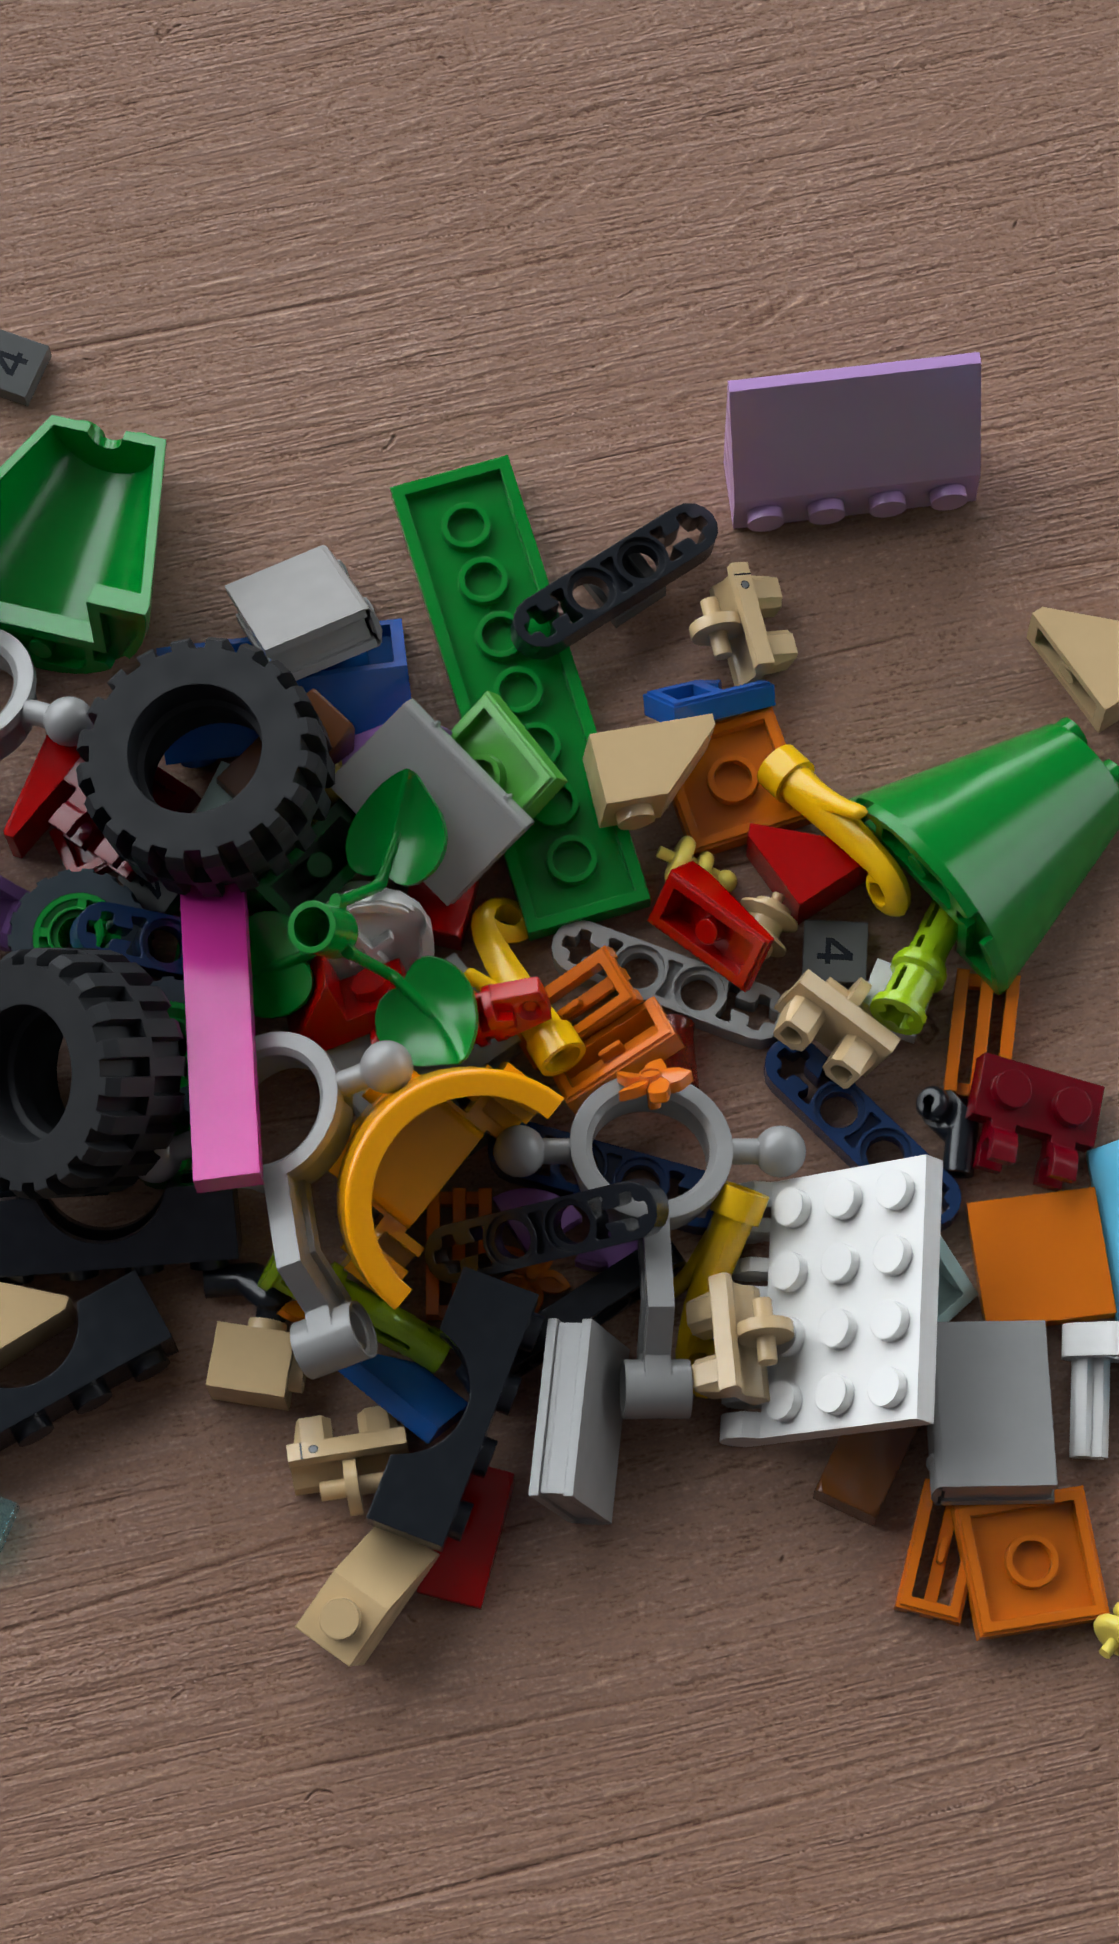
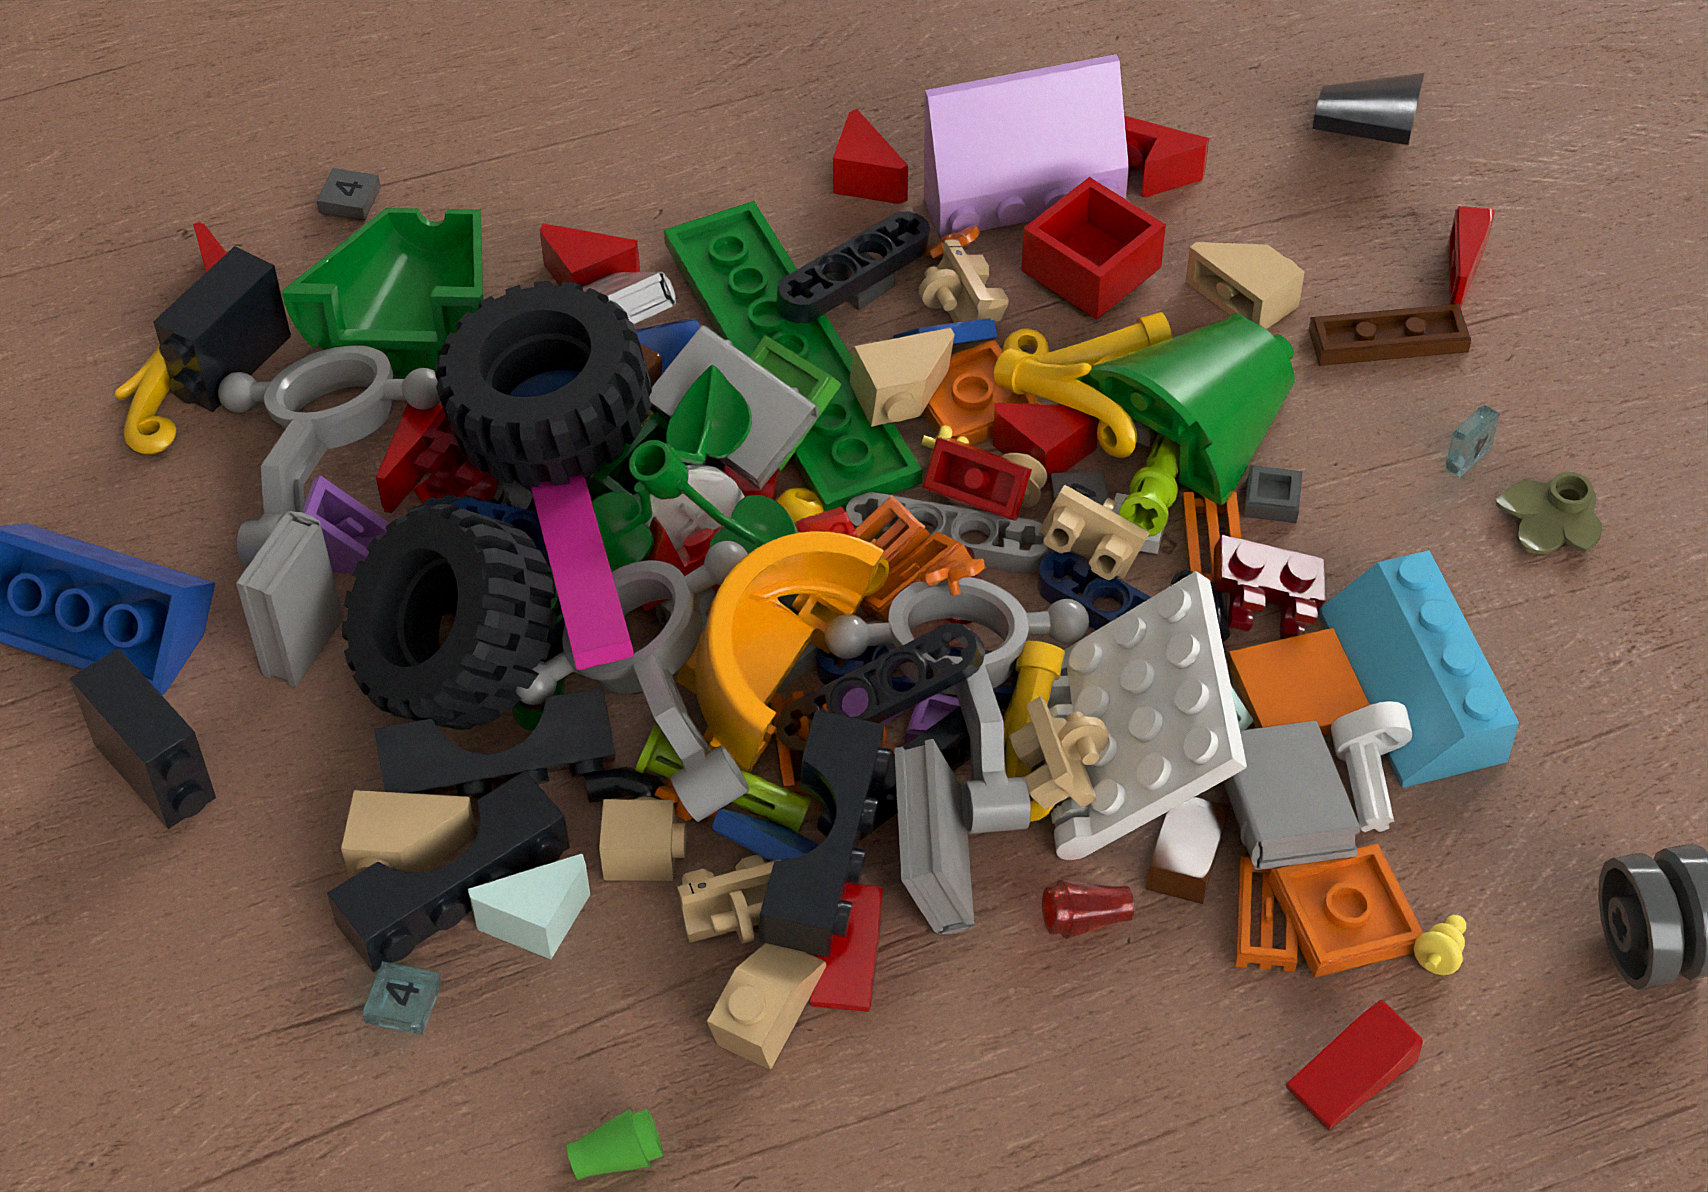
camera: 10 degrees left, 20 degrees down
(130, 1435) = (534, 905): none -> light aqua slope
(186, 1743) = (616, 1146): none -> bright green cone
(291, 521) = (586, 255): none -> red slope
(655, 410) = (867, 164): none -> red slope
(737, 1521) = (1082, 907): none -> clear red cone
(745, 548) = (964, 237): none -> orange plant
(896, 745) = (1144, 333): none -> yellow plant
(913, 593) = (1092, 247): none -> red piece
(996, 1760) = (1357, 1064): none -> red slope
(1038, 446) = (1165, 155): none -> red slope
(1066, 978) = (1273, 494): none -> dark grey tile

